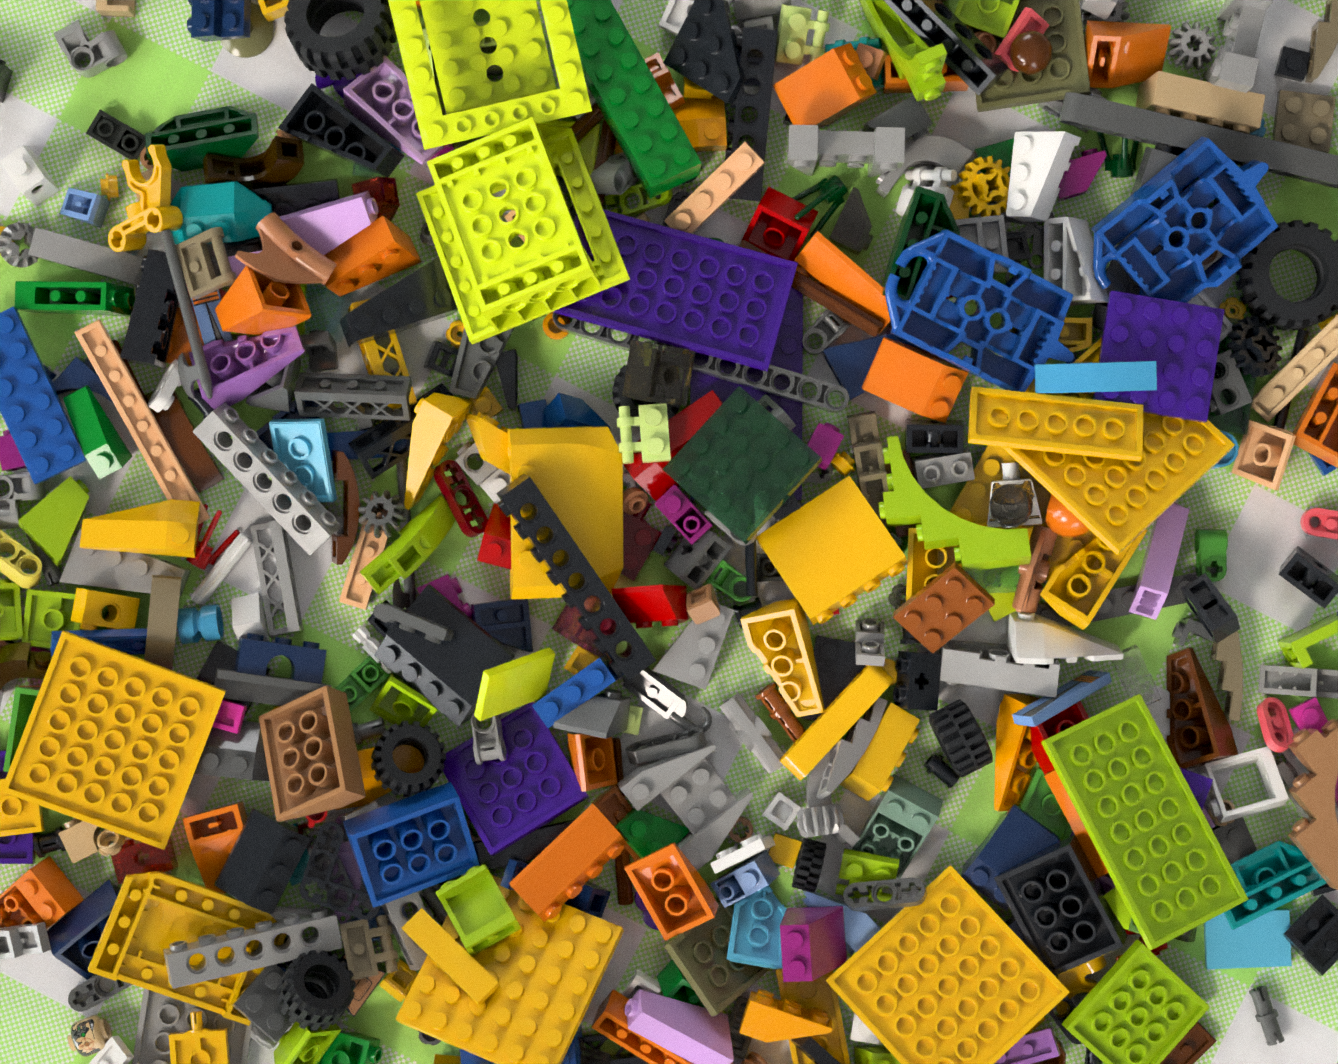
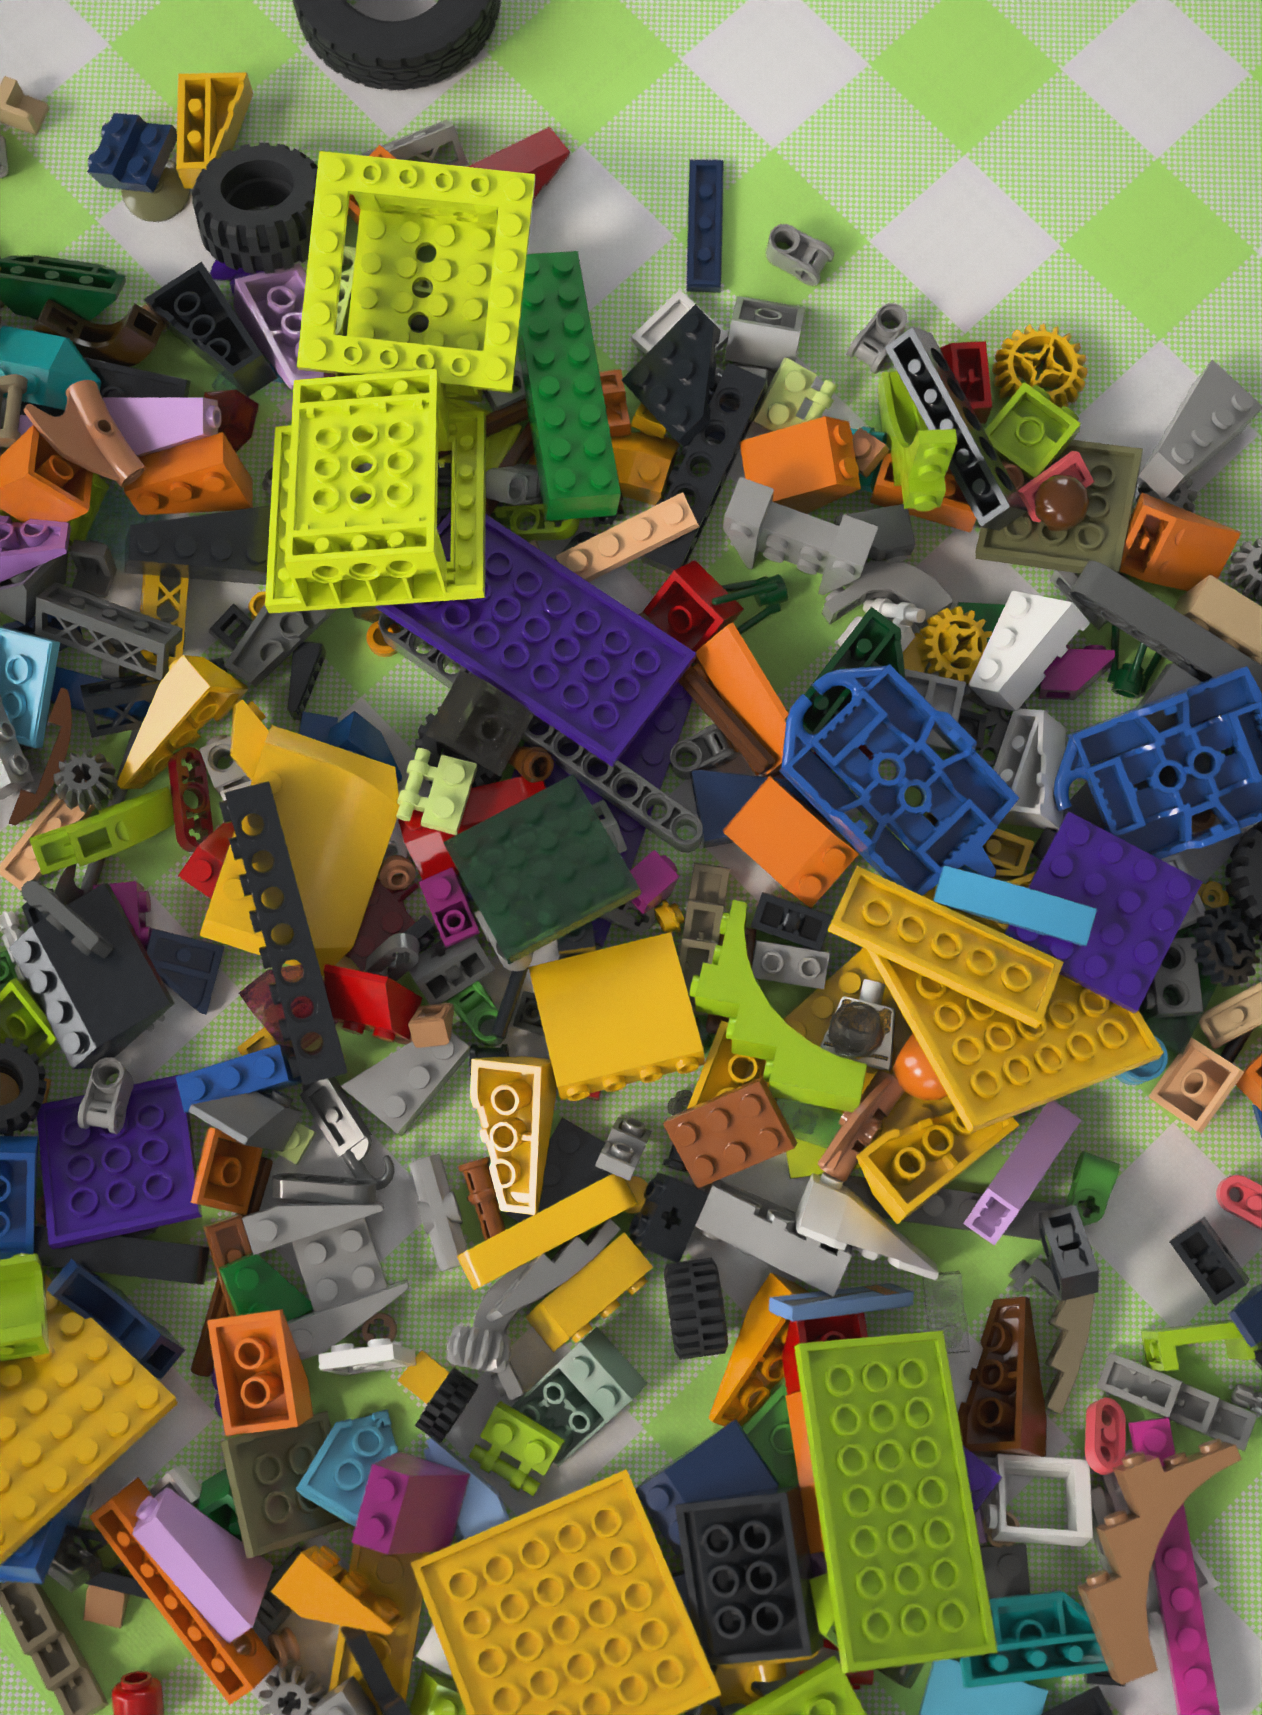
camera: 20 degrees right, 10 degrees down
(486, 404) = (266, 698): yellow plate -> none
(514, 684) = (161, 1040): neon yellow tile -> none
(568, 863) = (137, 1289): orange slope -> none
(655, 566) = (398, 964): none -> dark grey beam
(706, 387) = (532, 763): none -> reddish brown cone
(745, 879) = (361, 1395): medium blue slope -> none
(781, 810) = (437, 1323): white plate -> none
(853, 225) = (779, 639): clear smoke slope -> none
(864, 902) = (557, 1472): dark grey beam -> none
(941, 770) = (659, 1344): black pin -> none

